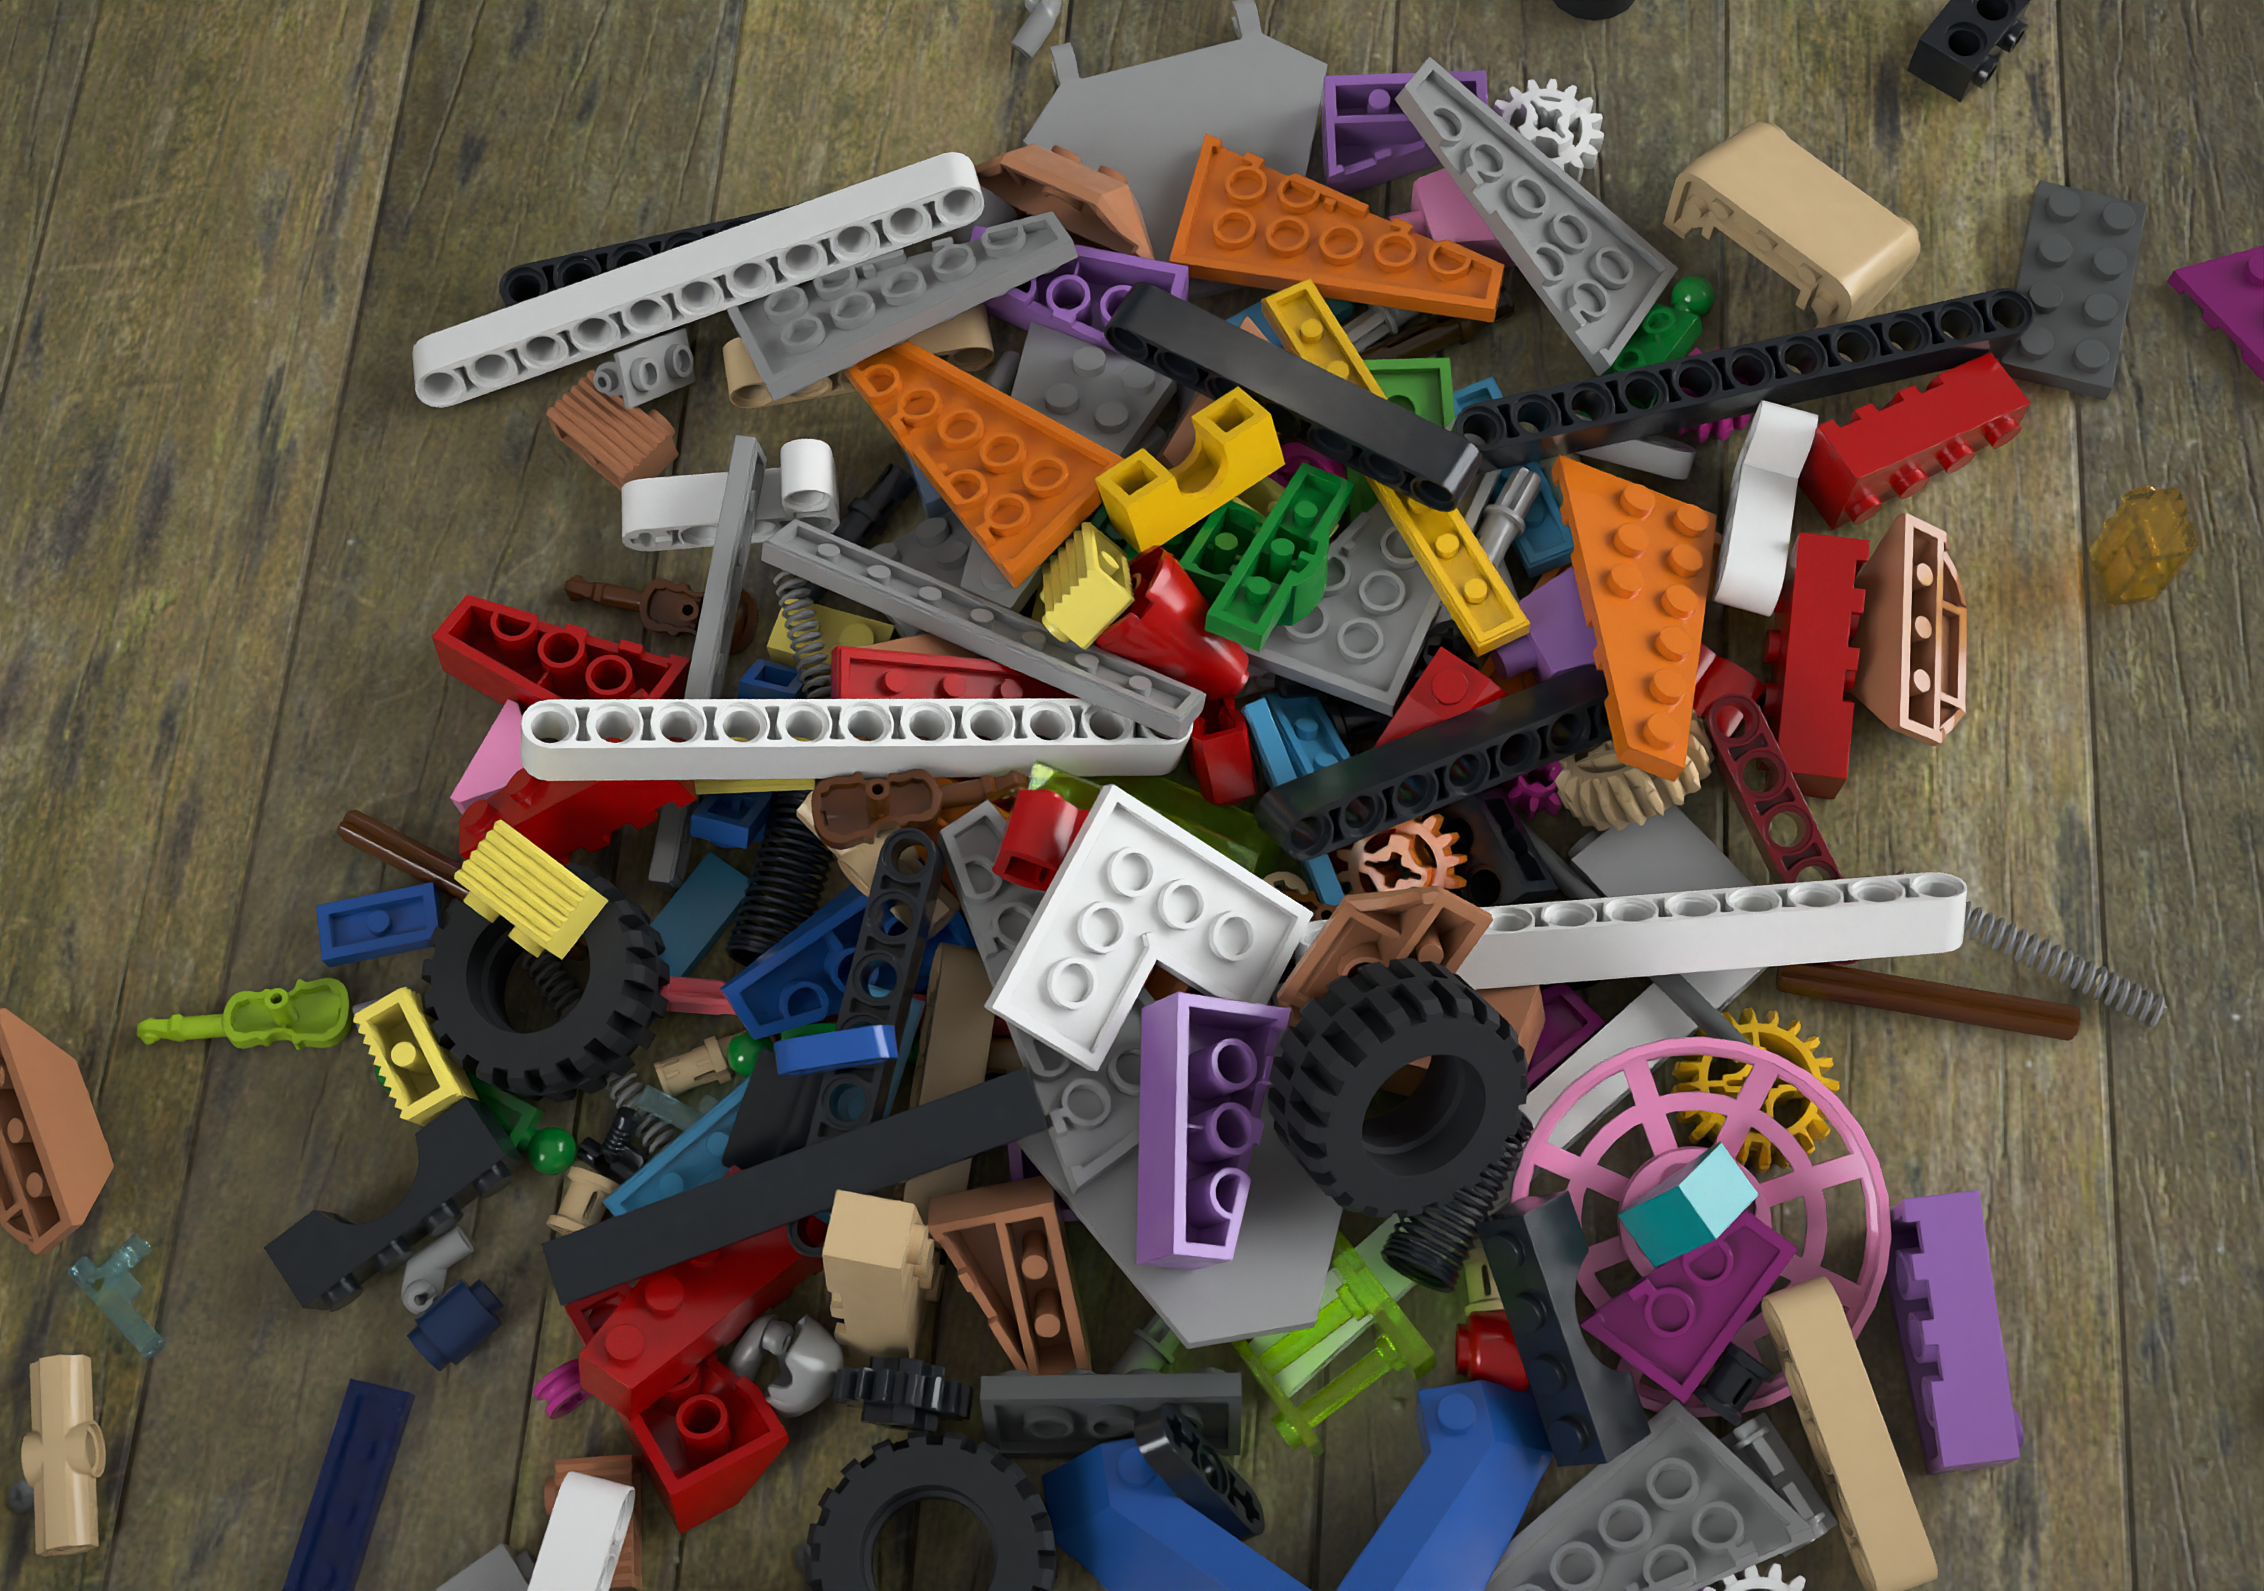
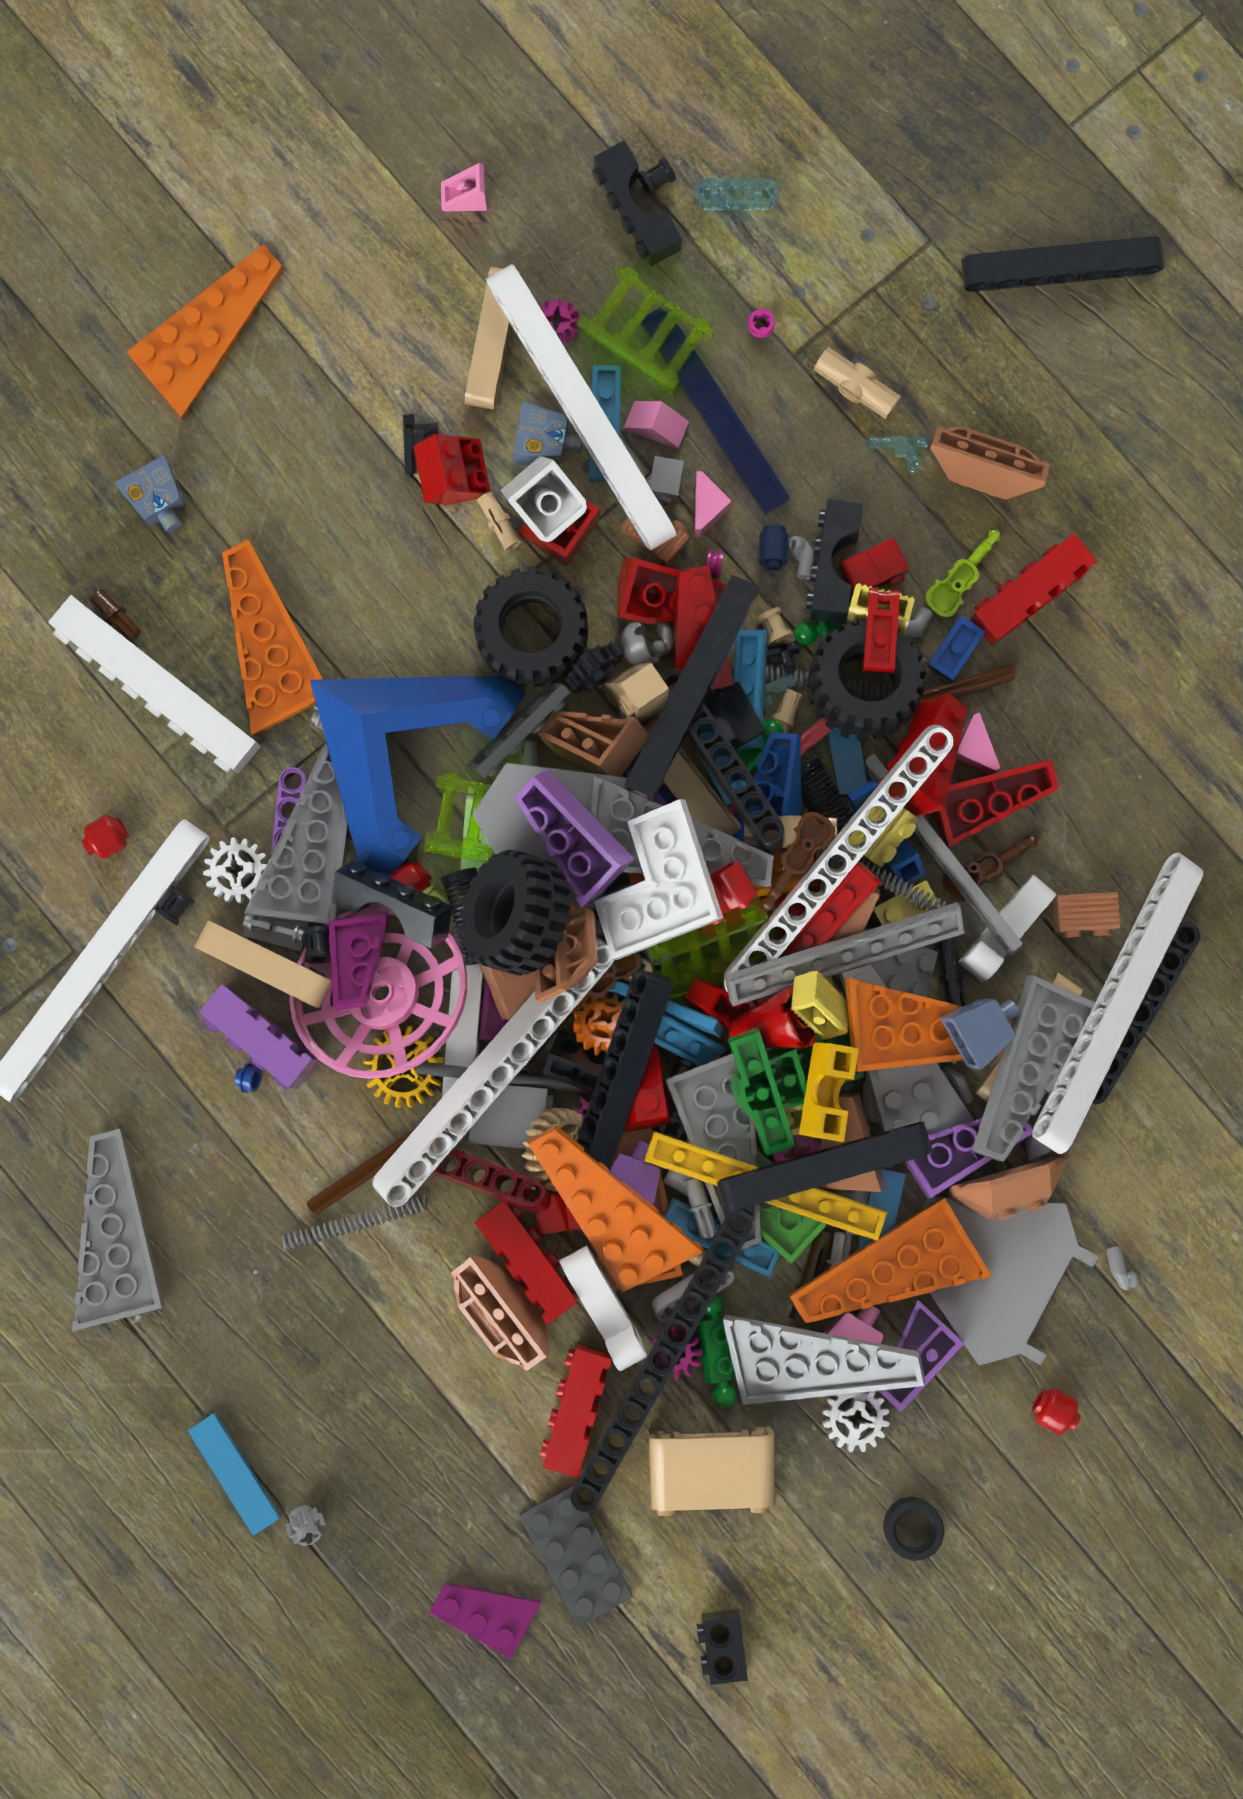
camera: 130 degrees right, 15 degrees up
(186, 895) = (1033, 589): none -> red wedge
(354, 1145) = (876, 566): none -> red brick
(447, 1005) = (881, 631): none -> red plate
(473, 1491) = (709, 504): none -> bright pink slope
(529, 890) = (895, 693): light yellow brick -> none
(648, 369) = (1097, 948): light grey hinge -> none
(836, 1050) = (723, 739): blue beam -> none
(908, 377) = (981, 1030): none -> sand blue torso
(1198, 1472) = (474, 729): black beam -> none
(1689, 1206) = (384, 989): teal slope -> none
(2019, 1295) = (248, 1078): none -> blue plate
(2143, 545) = (446, 1441): clear yellow brick -> none

